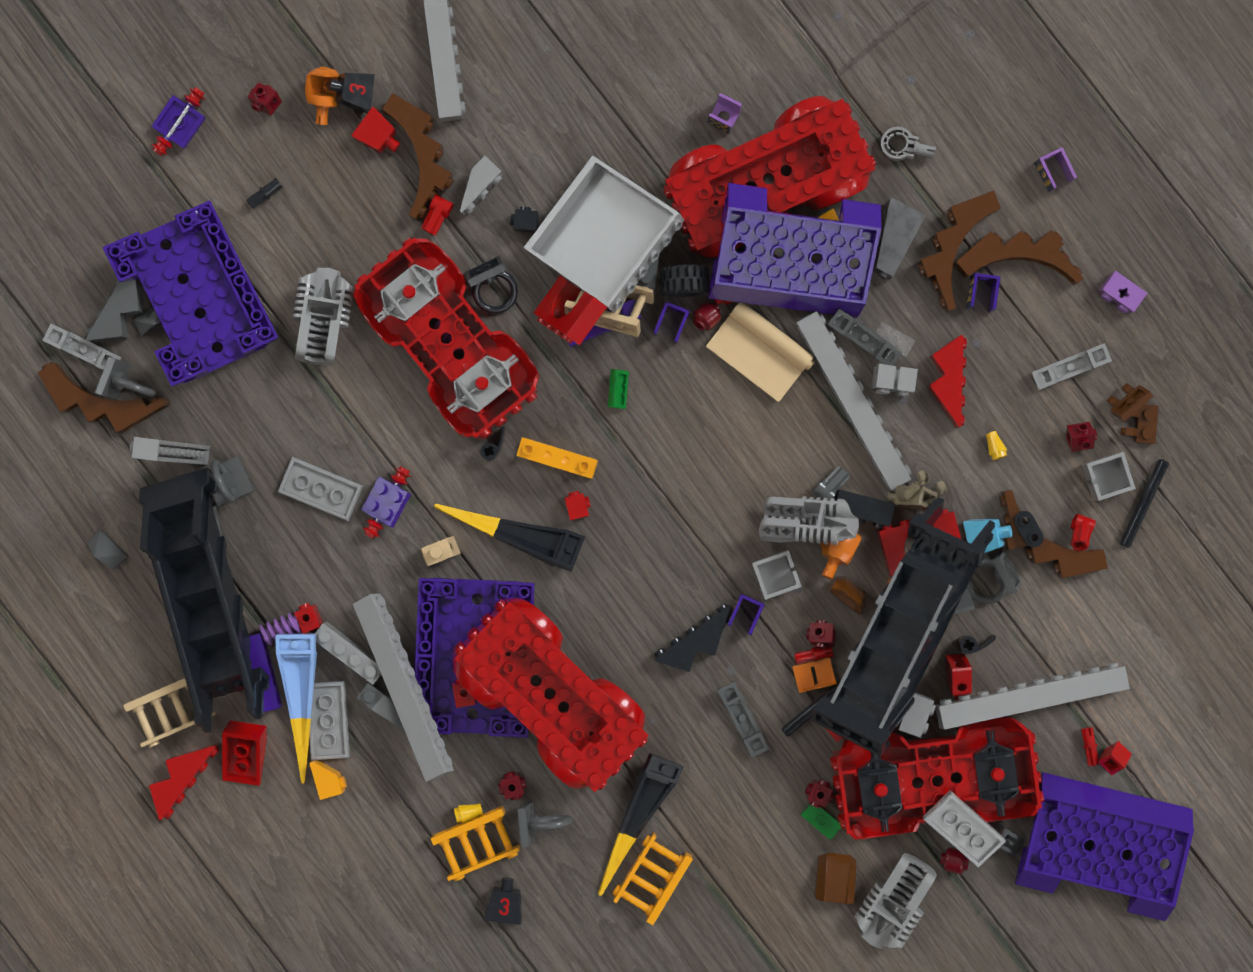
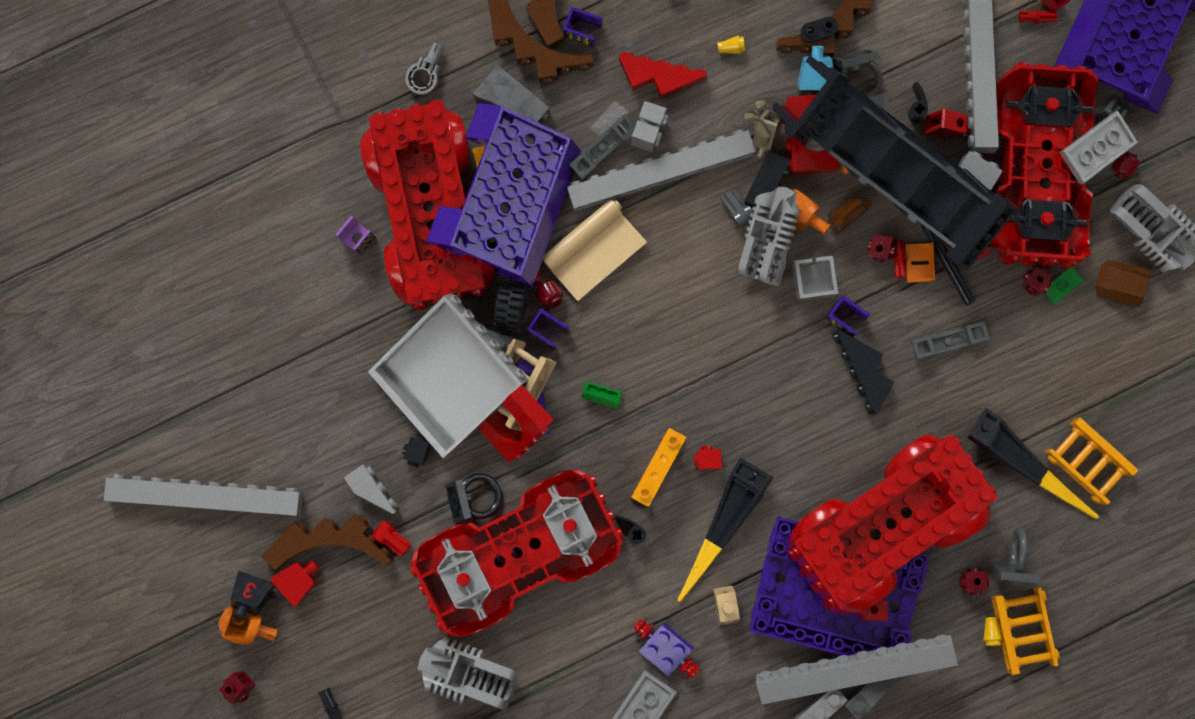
camera: 80 degrees left, 5 degrees down
(505, 904) = (1091, 614): black torso -> none

